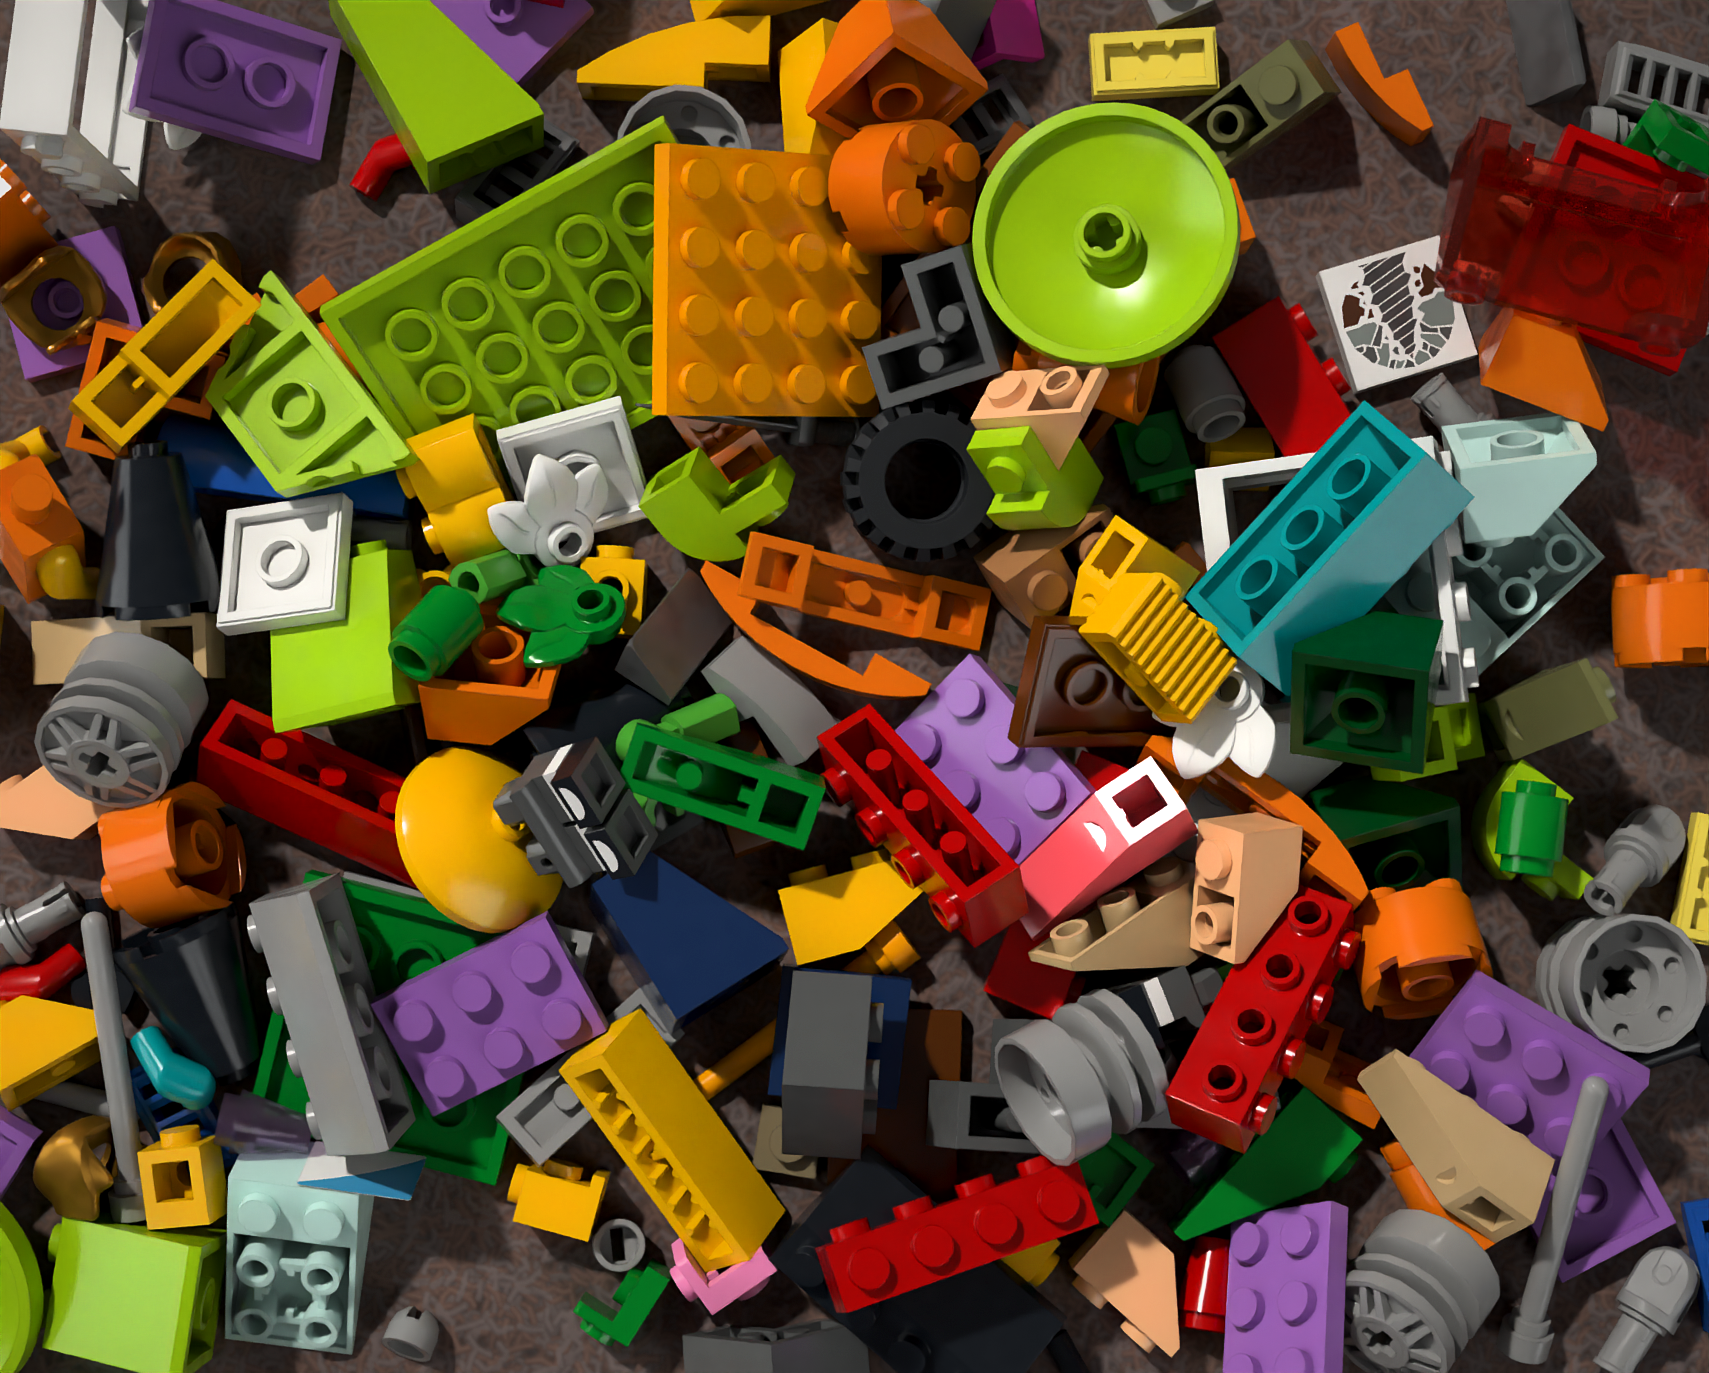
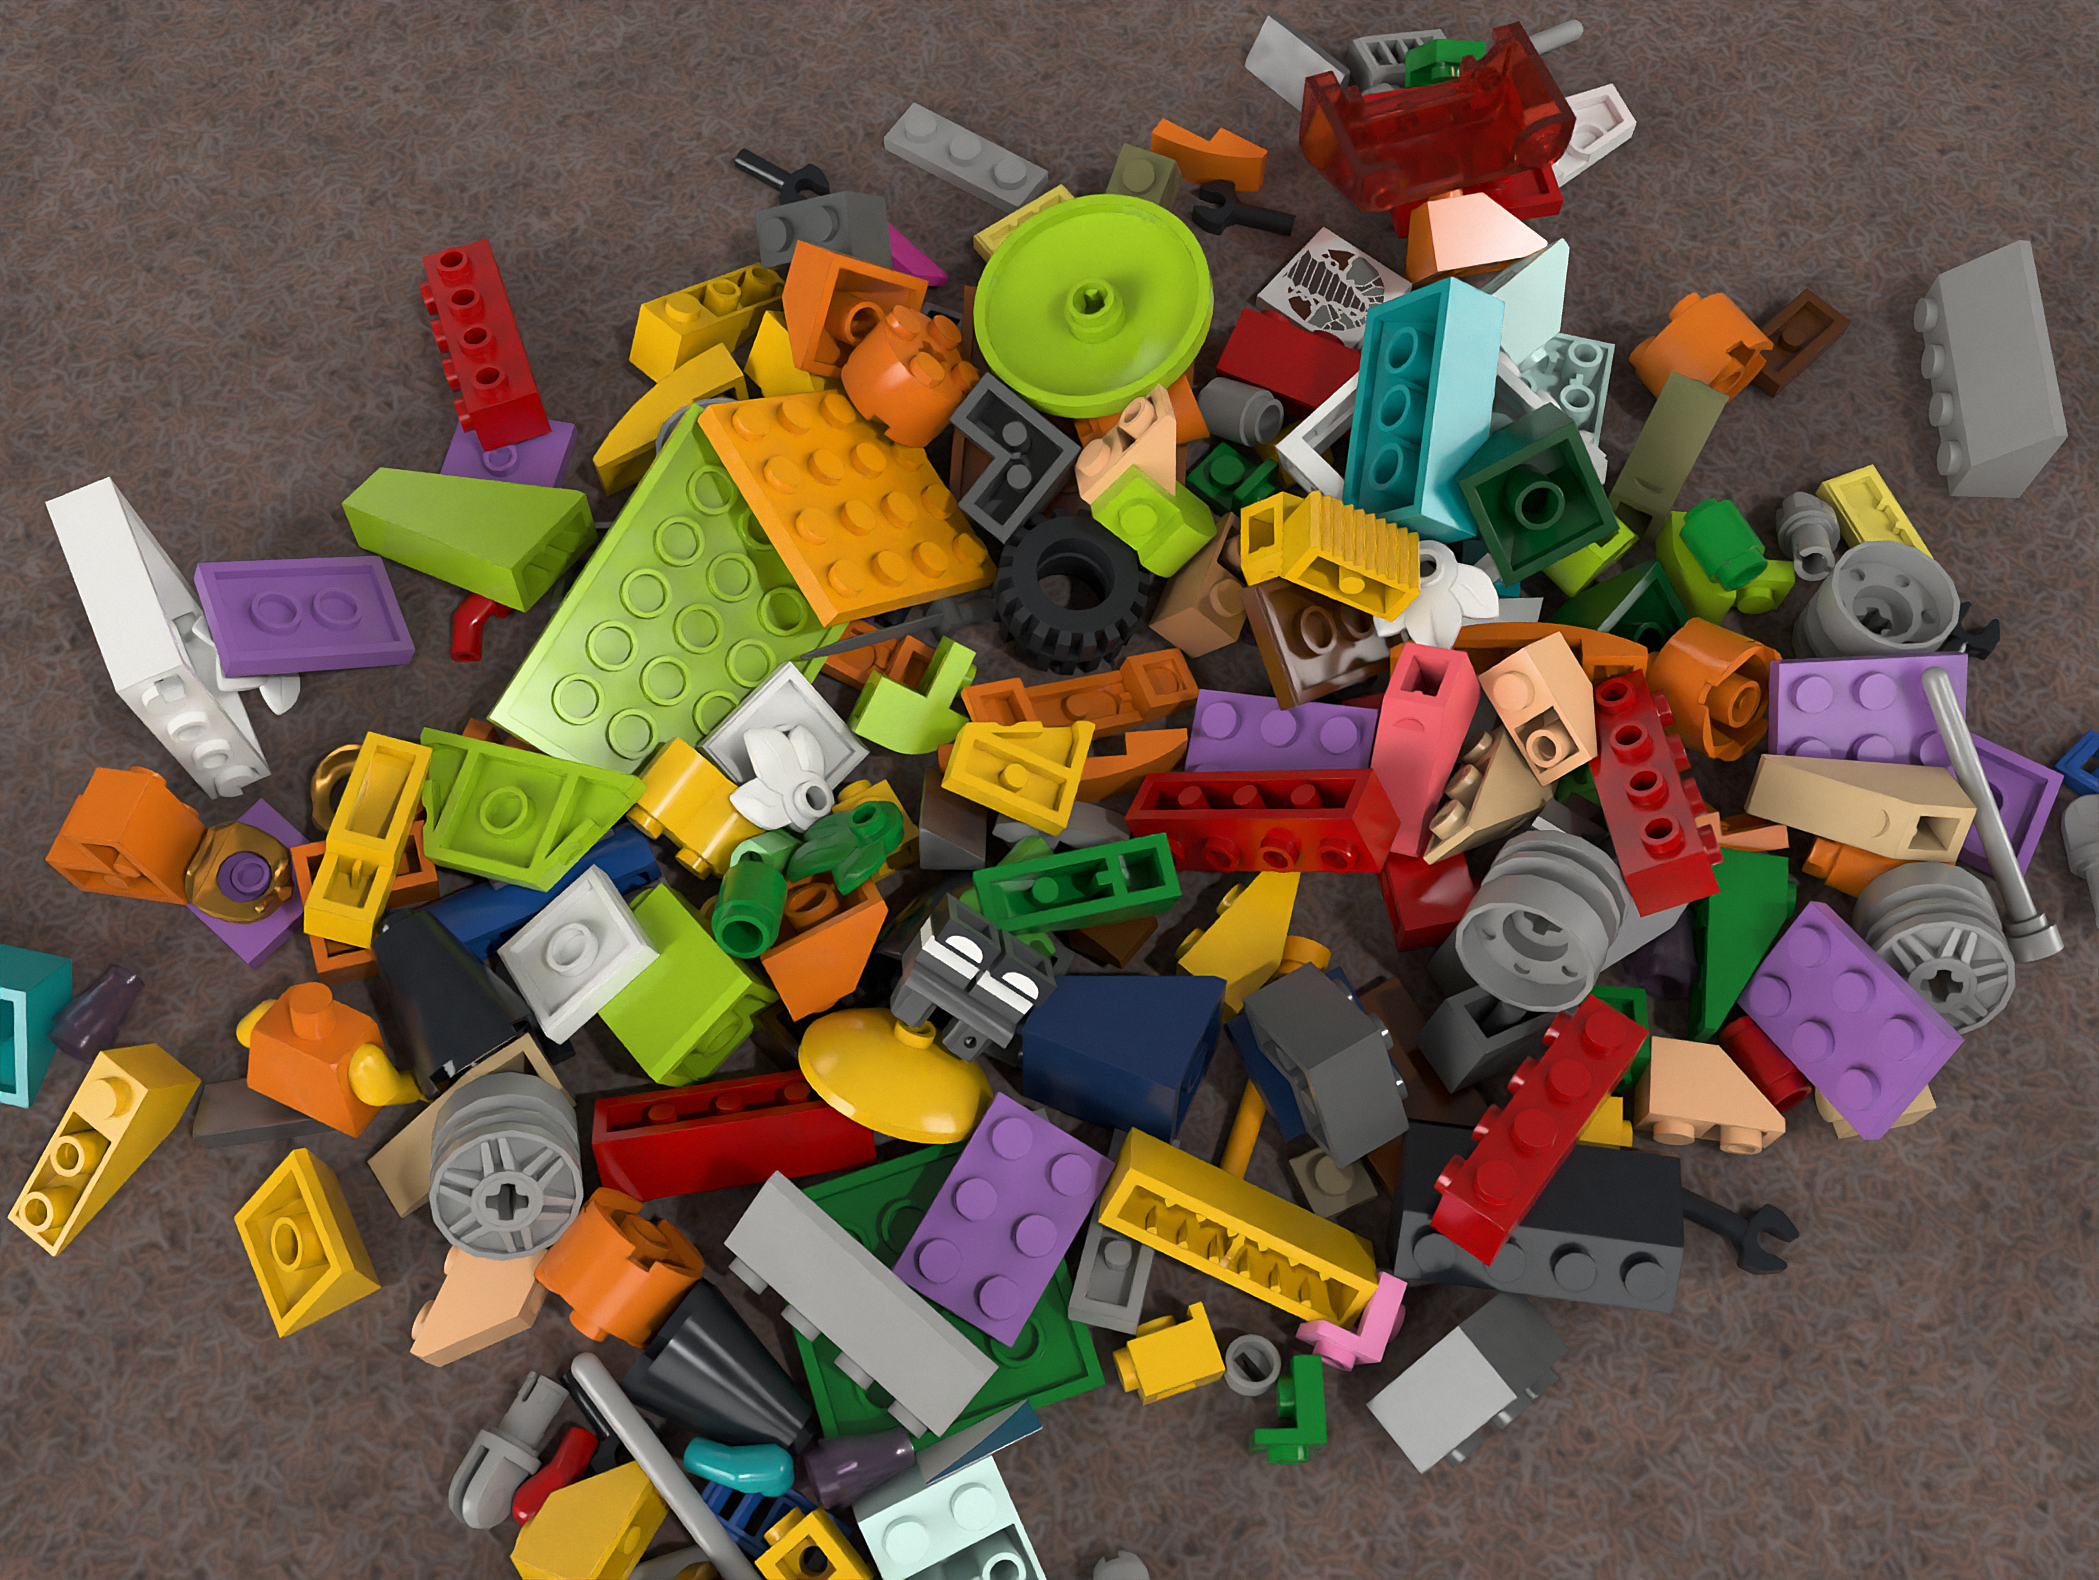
camera: 35 degrees left, 20 degrees down
(753, 641) = (1021, 769): none -> yellow wing
(1371, 162) = (1236, 212): none -> black bar

